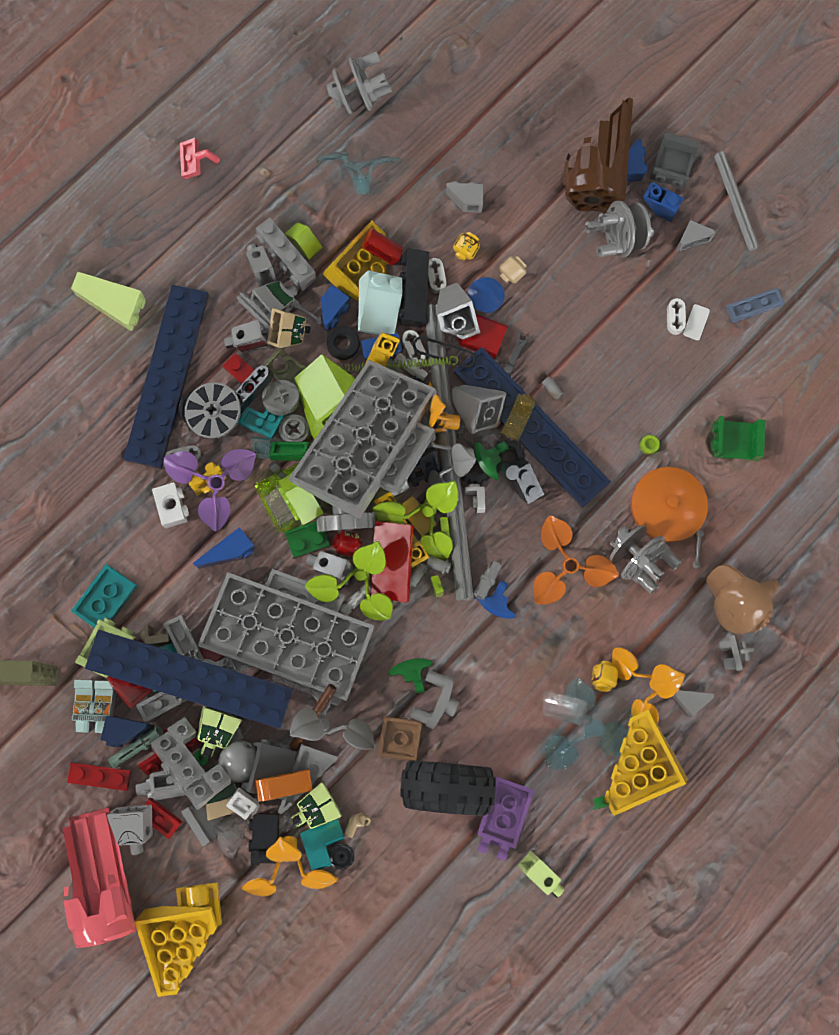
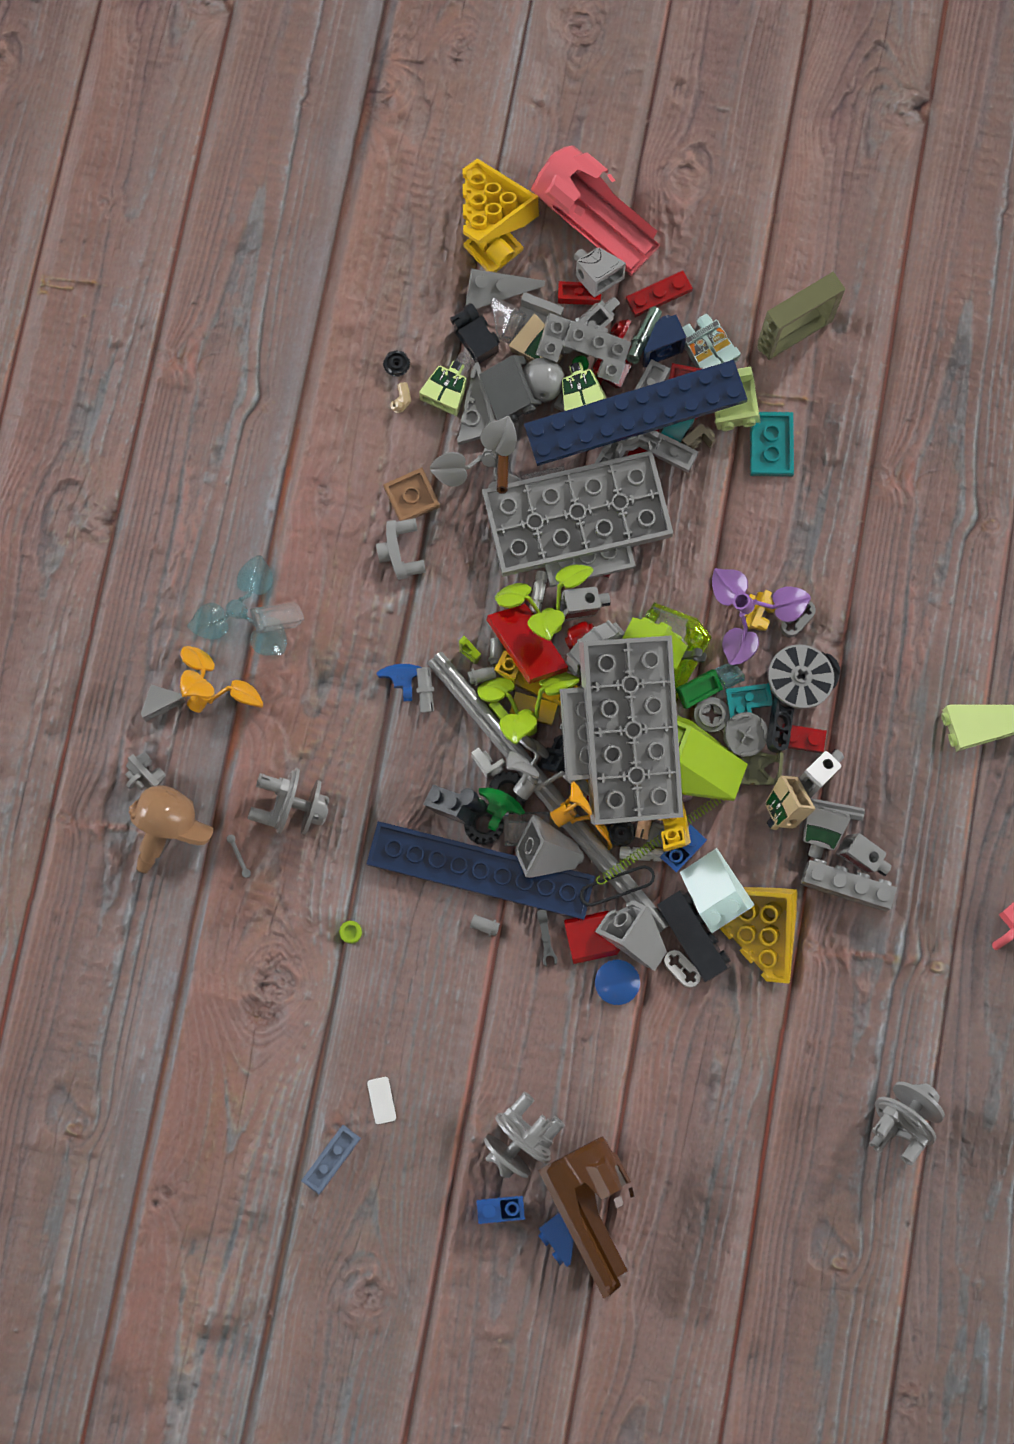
camera: 150 degrees right, 0 degrees up
(163, 496) = (771, 552): white brick -> none
(166, 377) = (874, 687): dark blue plate -> none
(222, 870) = (490, 285): none -> light grey wing
(230, 549) = (687, 559): blue slope -> none
(243, 803) = (512, 345): white bracket -> none
(283, 785) = (487, 382): orange beam -> none
(286, 850) = (444, 329): light orange plant -> none
(303, 240) = (843, 916): lime slope -> none
(306, 540) = (624, 610): green plate -> none
(317, 839) = (426, 360): teal tile -> none
(319, 321) = (802, 845): light grey hinge -> none
(333, 305) = (762, 863): blue slope -> none
(342, 331) = (730, 820): black tyre -> none
(361, 181) = (831, 1014): clear light blue plant -> none
(382, 247) = (756, 960): red brick -> none
(409, 348) = (658, 873): white beam -> none
(411, 671) = (441, 561): green piece -> none
(448, 788) = (338, 468): black tyre -> none
(466, 196) = (708, 1076): light grey slope -> none
(466, 246) = (671, 1019): yellow head -> none
(505, 818) = (272, 489): medium lavender tile -> none
(513, 269) = (607, 1025): tan head -> none
(519, 416) = (498, 864): clear yellow bracket -> none
(541, 874) = (208, 457): yellowish green torso -> none
(549, 588) = (360, 722): orange plant -> none
(600, 803) = (191, 555): green piece -> none
(604, 676) = (256, 671): yellow head -> none
(645, 766) = (168, 611): yellow slope -> none
(669, 504) = (294, 882): orange dish -> none
(674, 160) = (516, 1270): dark grey panel -> none
(680, 316) = (401, 1093): white beam -> none
(695, 235) = (443, 1193): light grey slope -> none
(736, 201) = (421, 1270): light grey axle -> none
(738, 439) = (264, 996): green panel -> none

